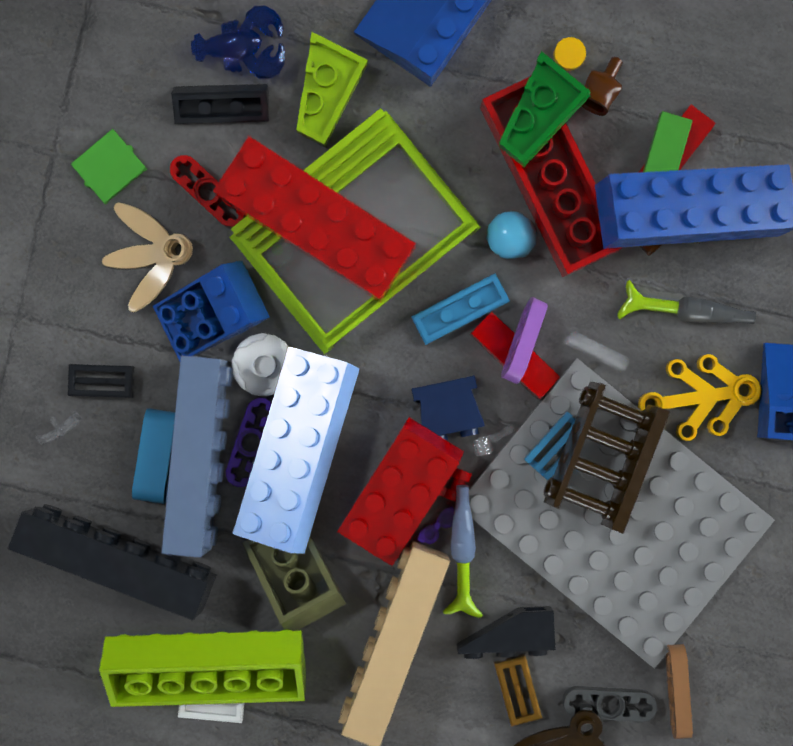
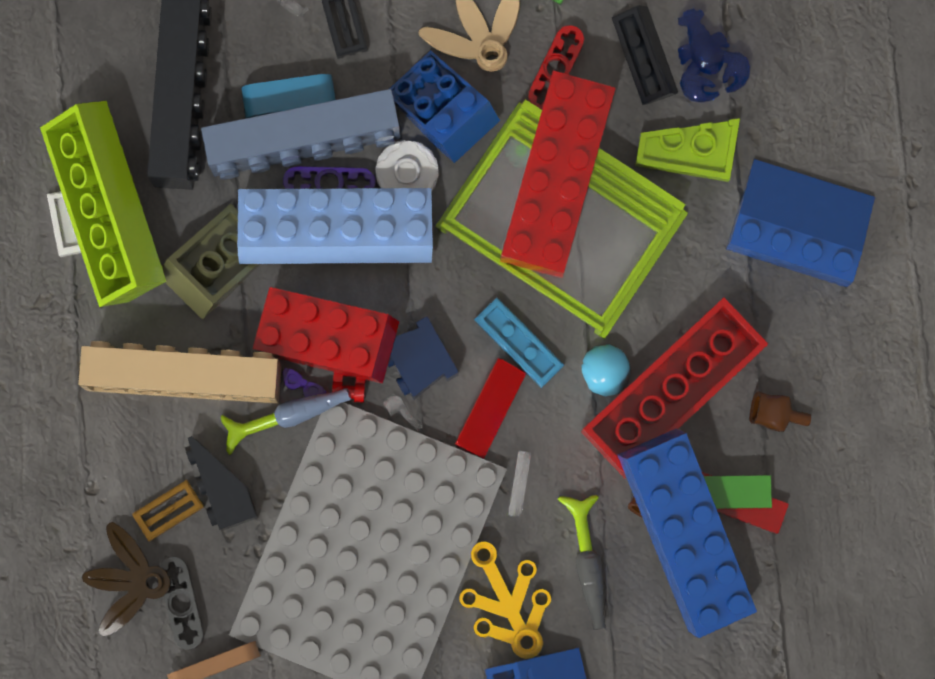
camera: 65 degrees right, 5 degrees down
(524, 340) = (507, 410): medium lavender beam -> none
(529, 458) = (421, 461): dark azure tile -> none
(544, 108) = (731, 356): green wing -> none
(569, 53) = (800, 372): yellow tile -> none
(637, 453) = (433, 548): dark brown fence -> none

